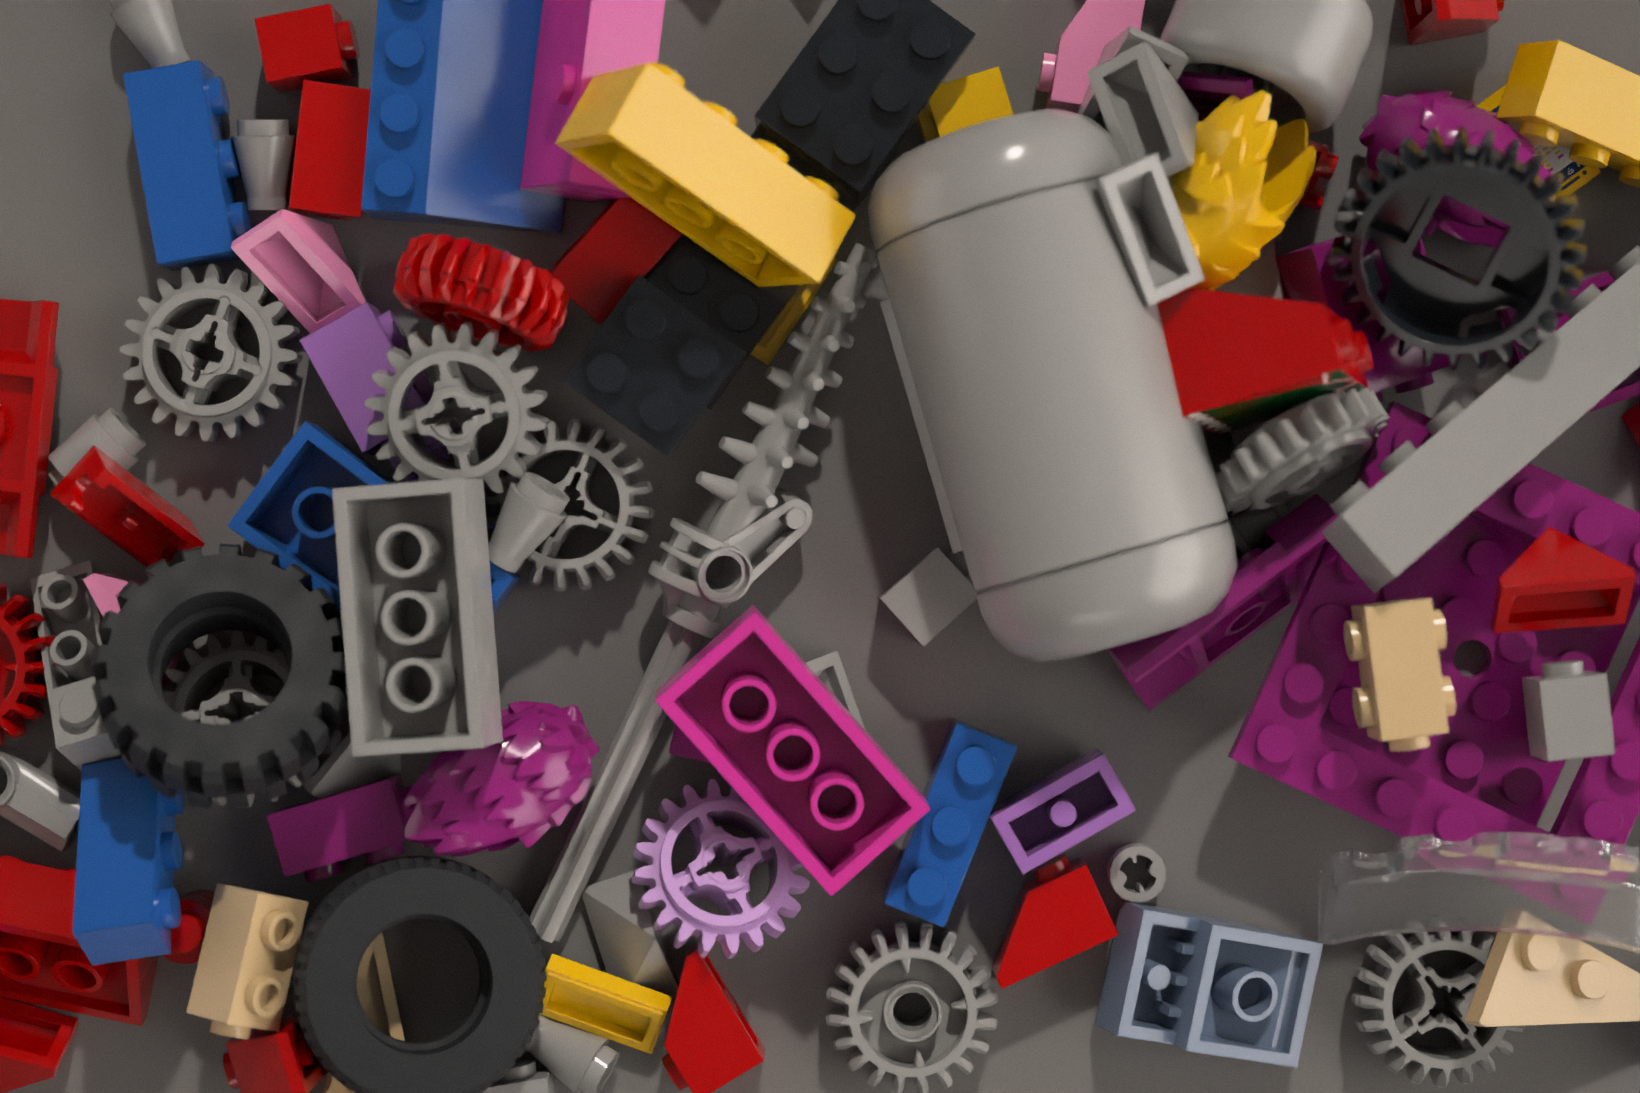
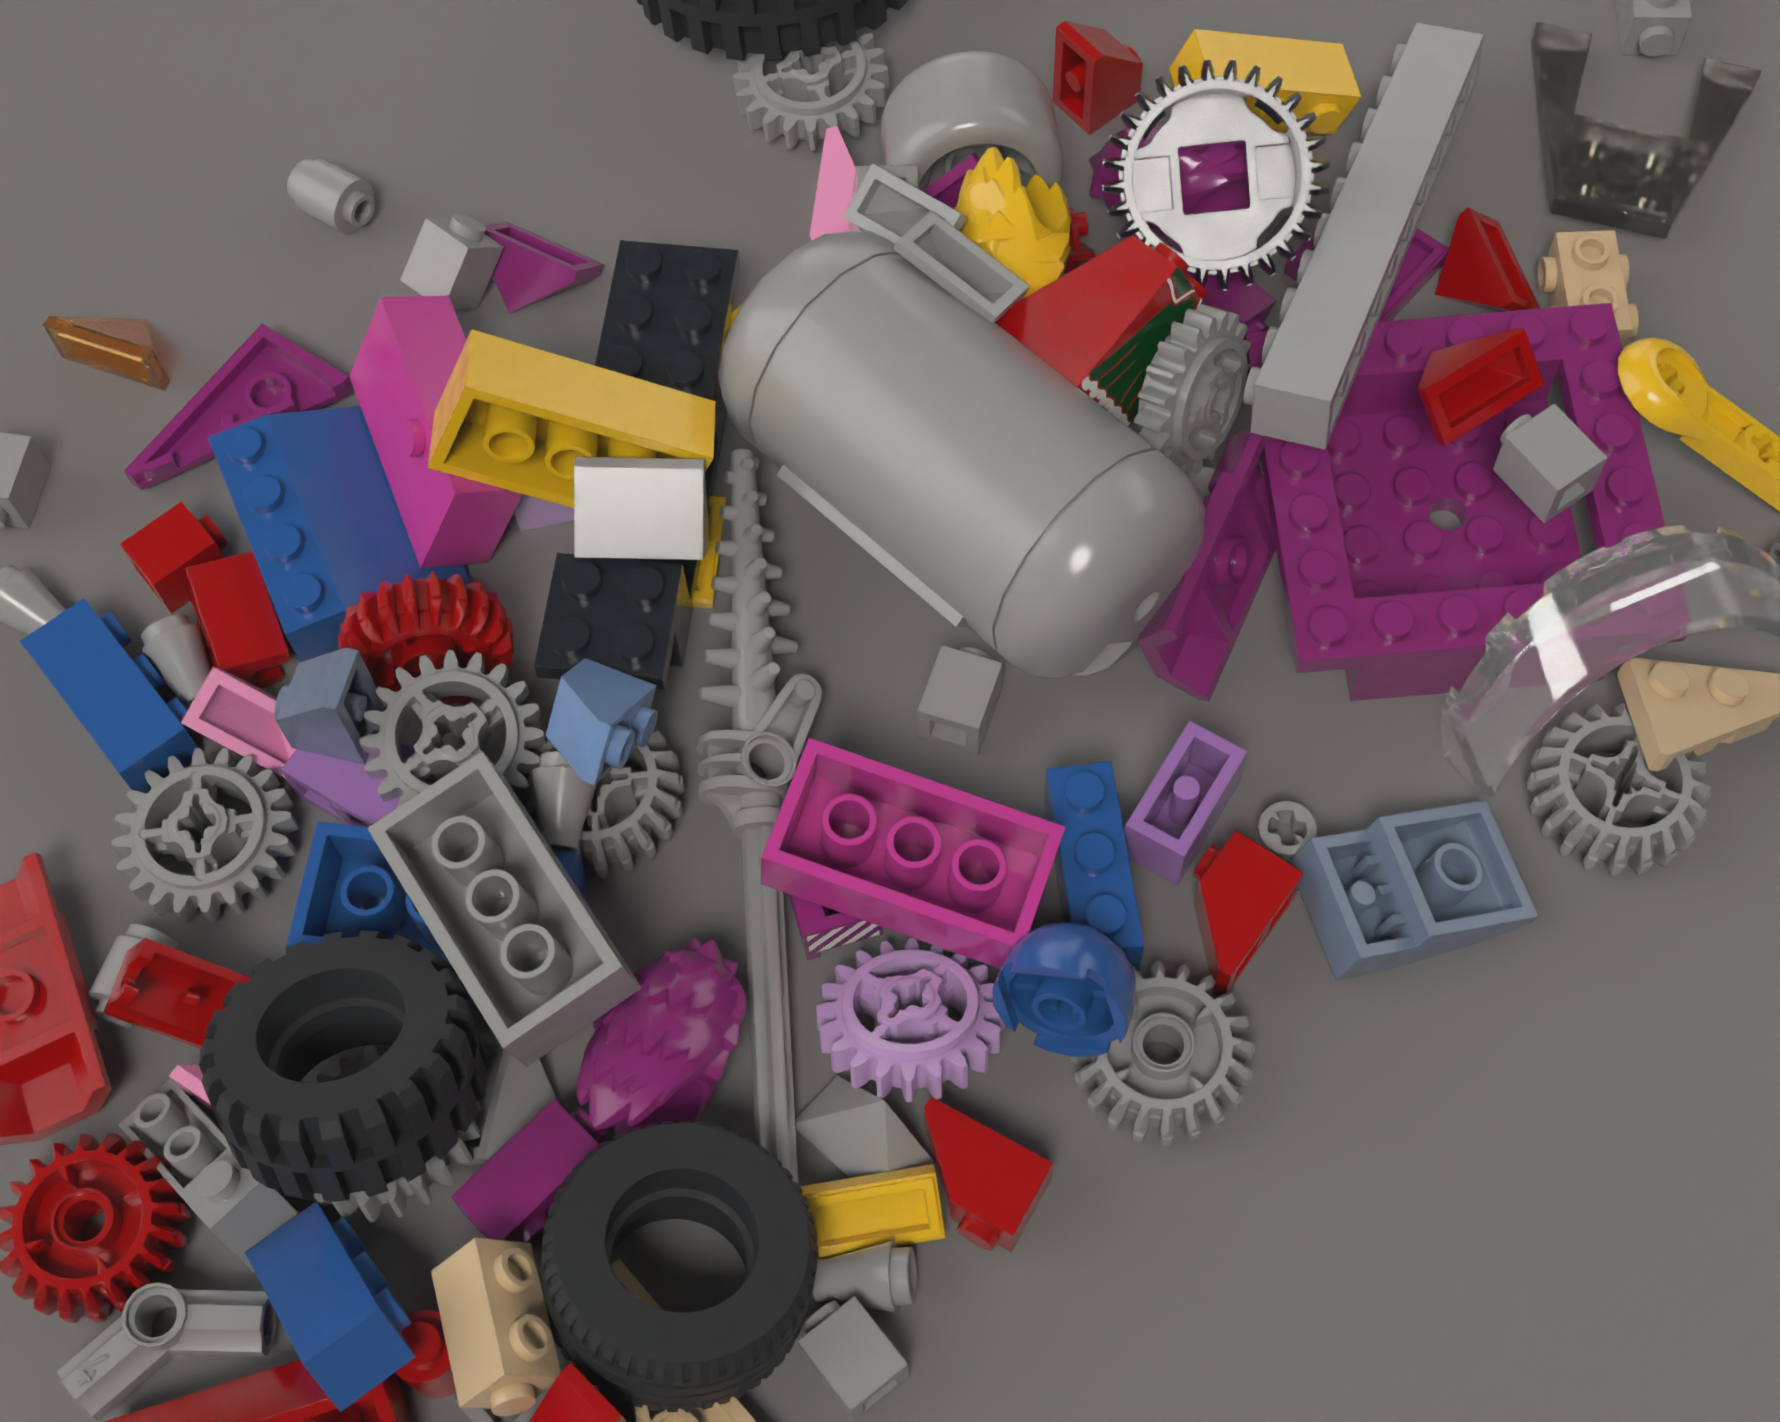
camera: 25 degrees left, 25 degrees down
(358, 322) = (327, 704): none -> sand blue slope
(584, 474) = (600, 718): none -> medium blue slope
(611, 254) = (527, 566): red hinge -> none
(728, 289) = (640, 508): none -> slope
(856, 940) = (1067, 989): none -> blue cylinder
(1400, 671) = (1387, 495): tan brick -> none

